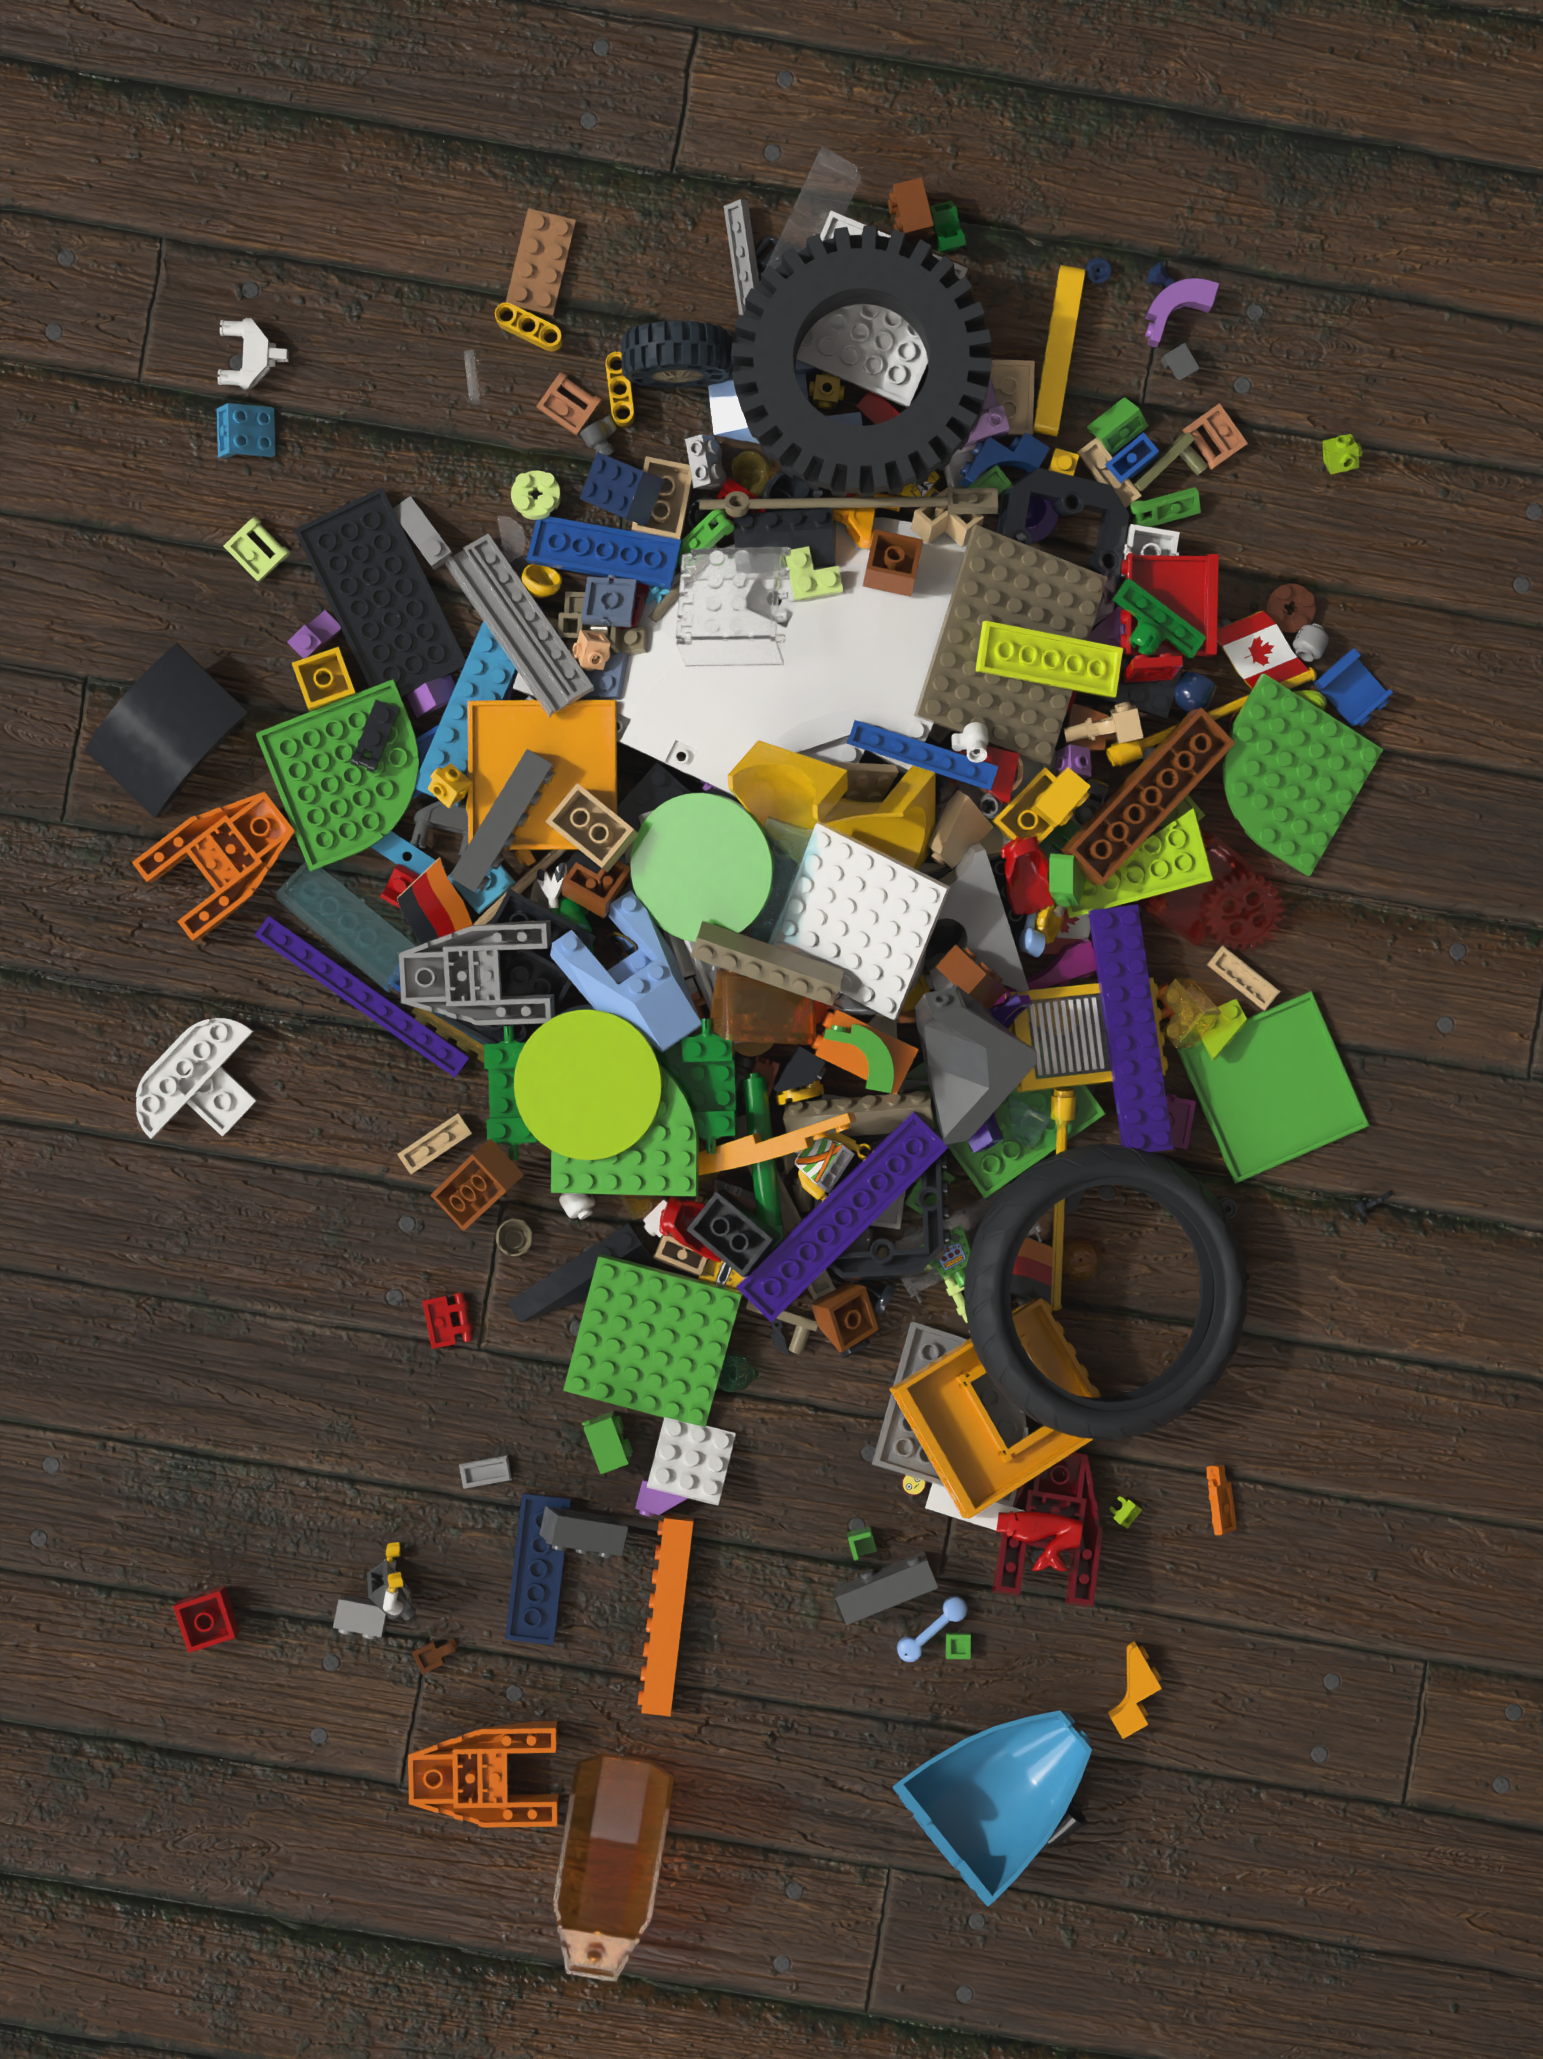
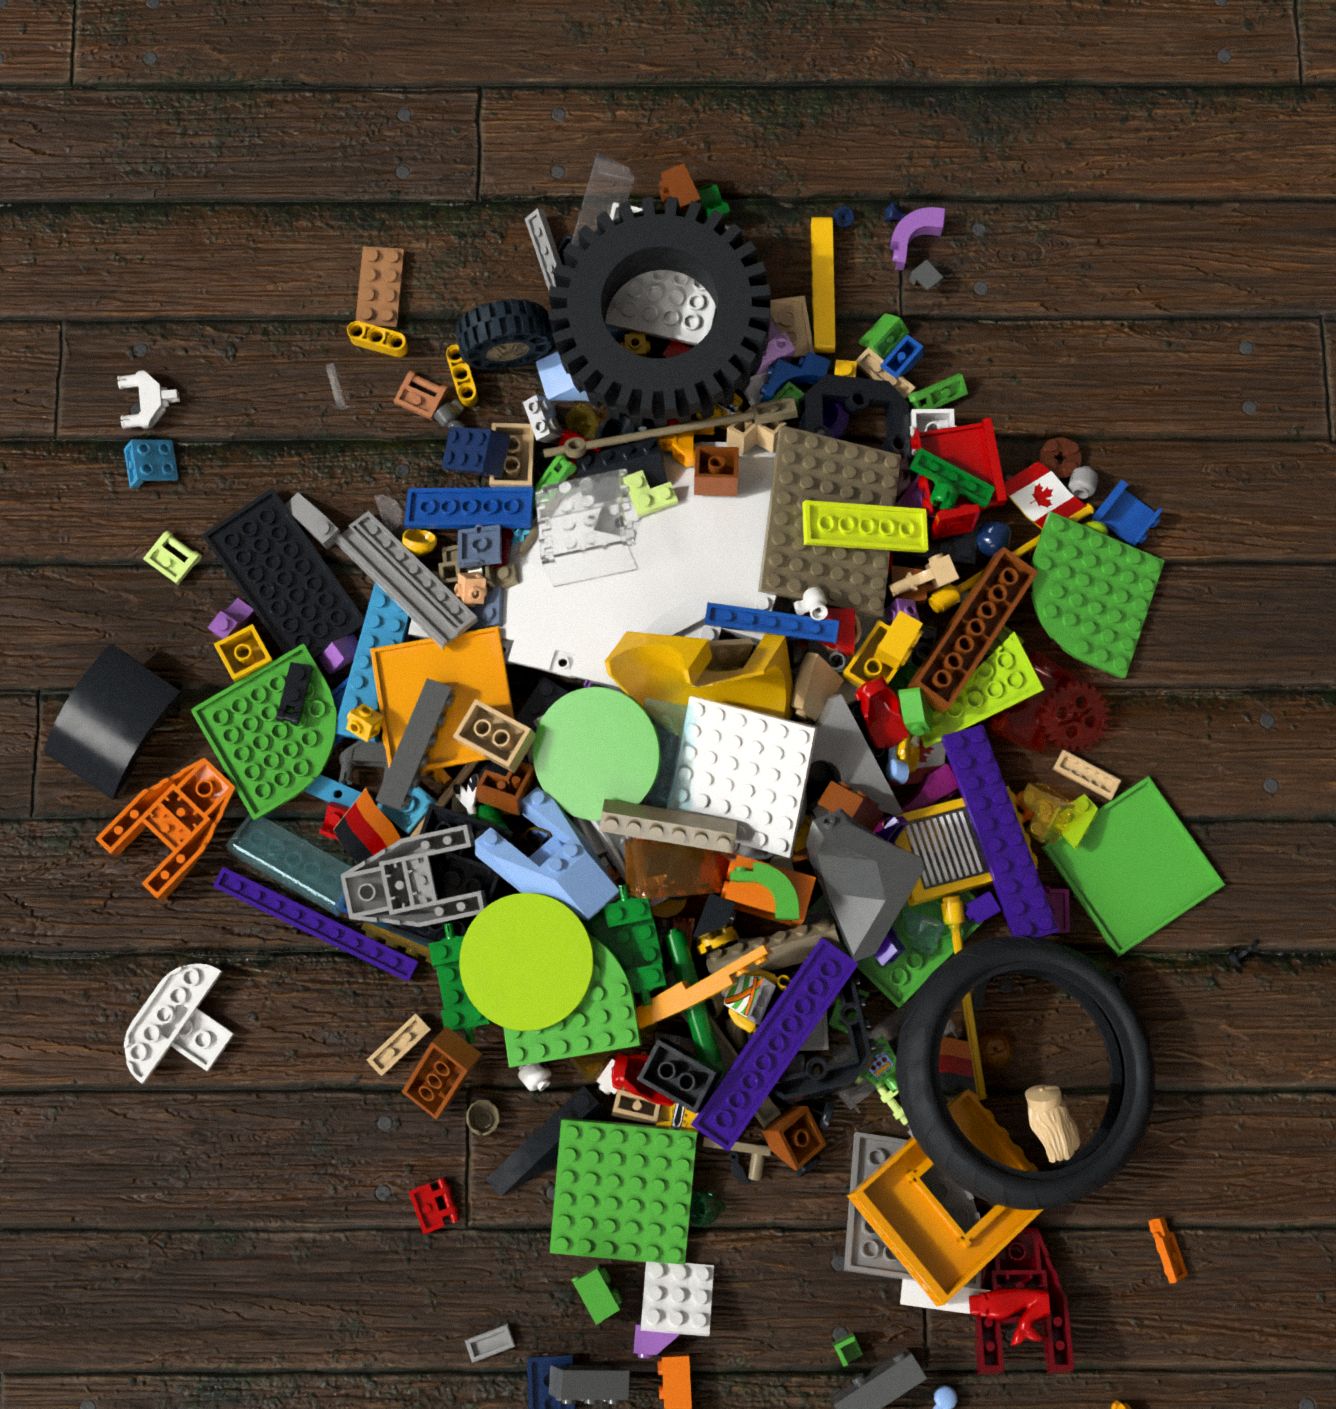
camera: 10 degrees left, 10 degrees down
(535, 481) = (401, 462): yellowish green plate -> none
(912, 1485) = (884, 1285): light yellow tile -> none
(1095, 1108) = (981, 908): none -> dark purple brick
(1121, 1352) = (1052, 1122): none -> tan hair
(1127, 1513) = (1085, 1278): lime tile -> none
(1180, 447) = (942, 344): olive piece -> none
(1222, 432) = (972, 326): nougat plate -> none
(1341, 454) = (1075, 326): lime brick -> none

